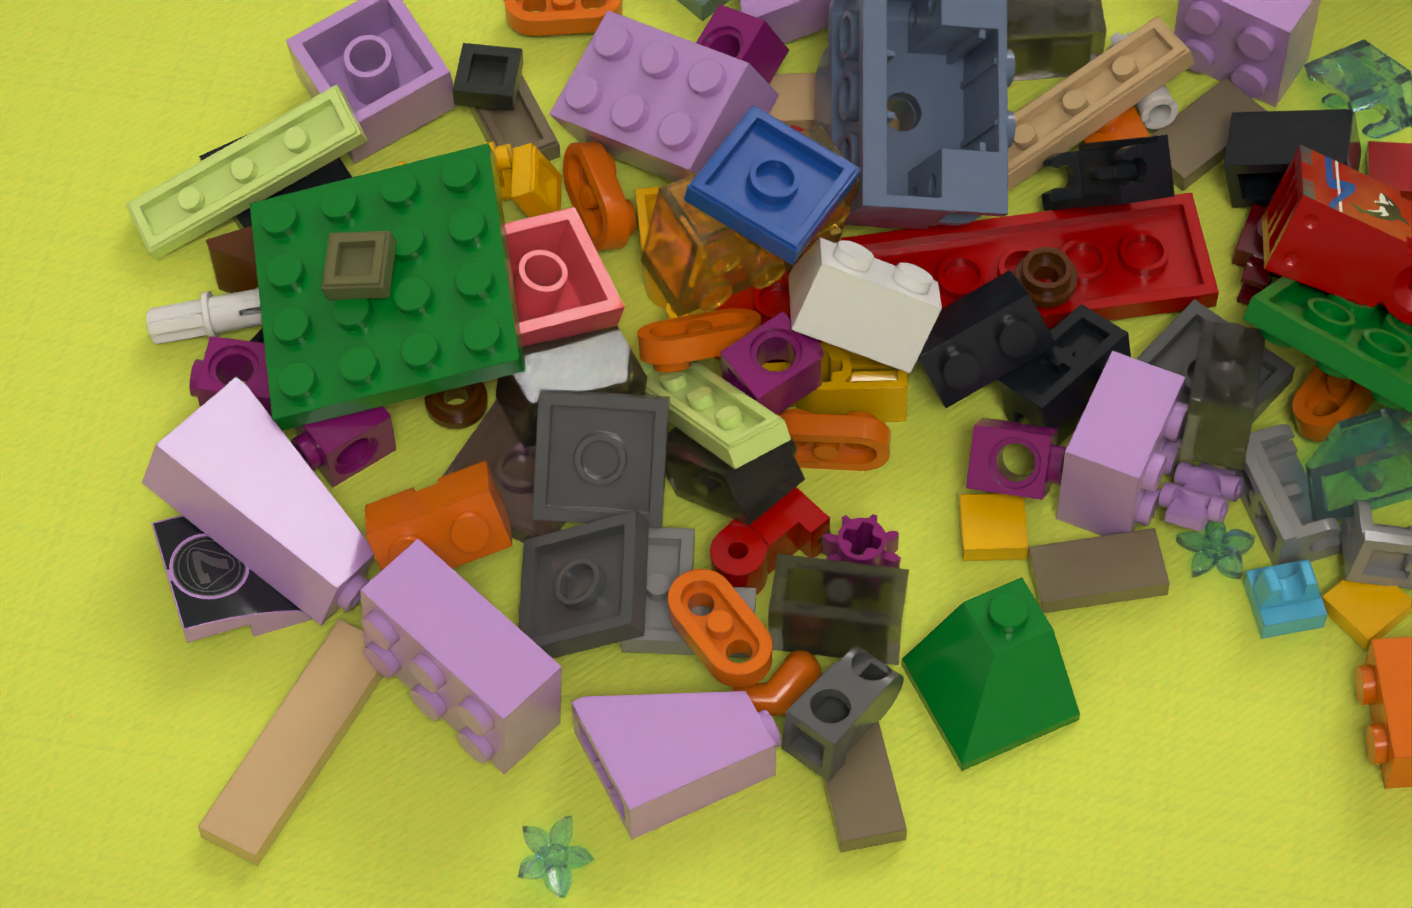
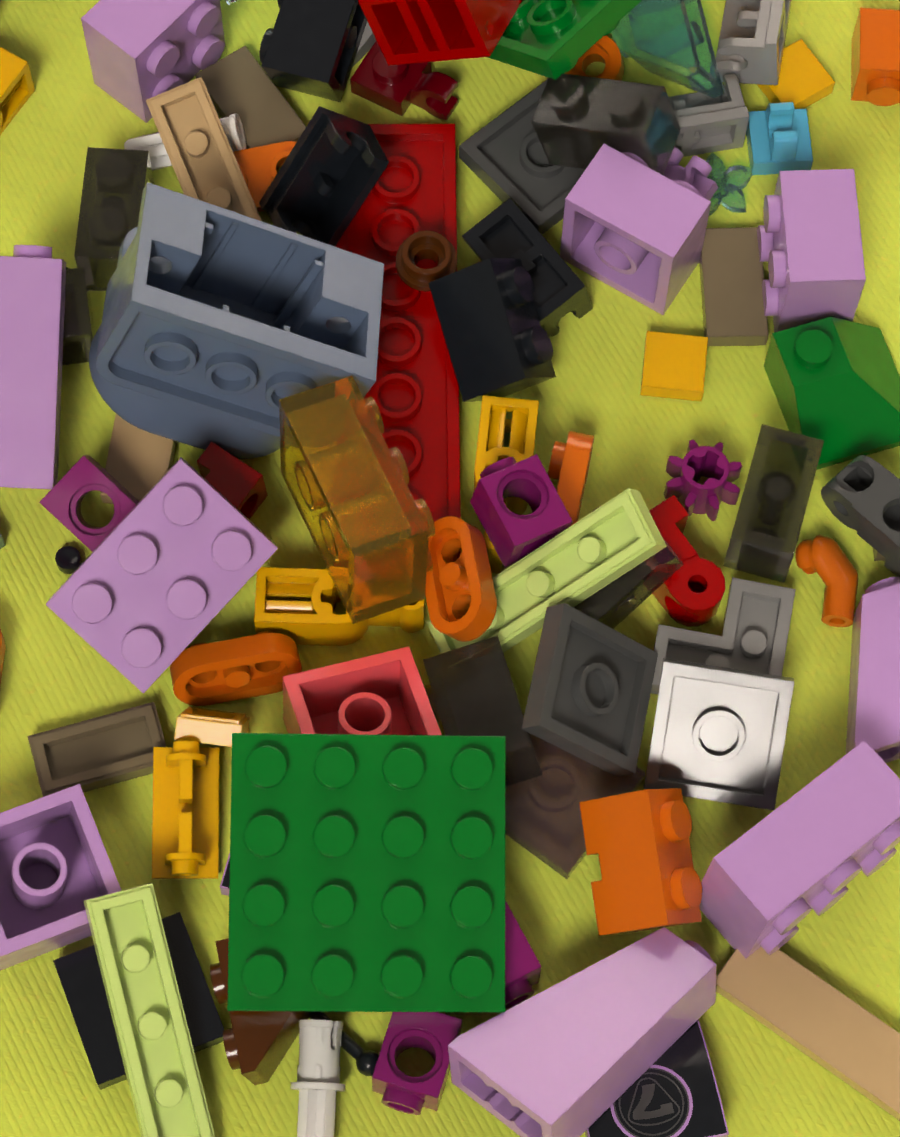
camera: 85 degrees left, 10 degrees up
(359, 265) = (361, 887): olive tile -> none
(488, 76) = (68, 754): pearl dark grey plate -> none
(722, 632) = (787, 610): orange plate -> none
(772, 184) = (362, 449): blue tile -> none
(863, 302) = (480, 408): white slope -> none
(987, 466) = (622, 326): magenta brick -> none
(1130, 612) = (811, 248): none -> lavender brick

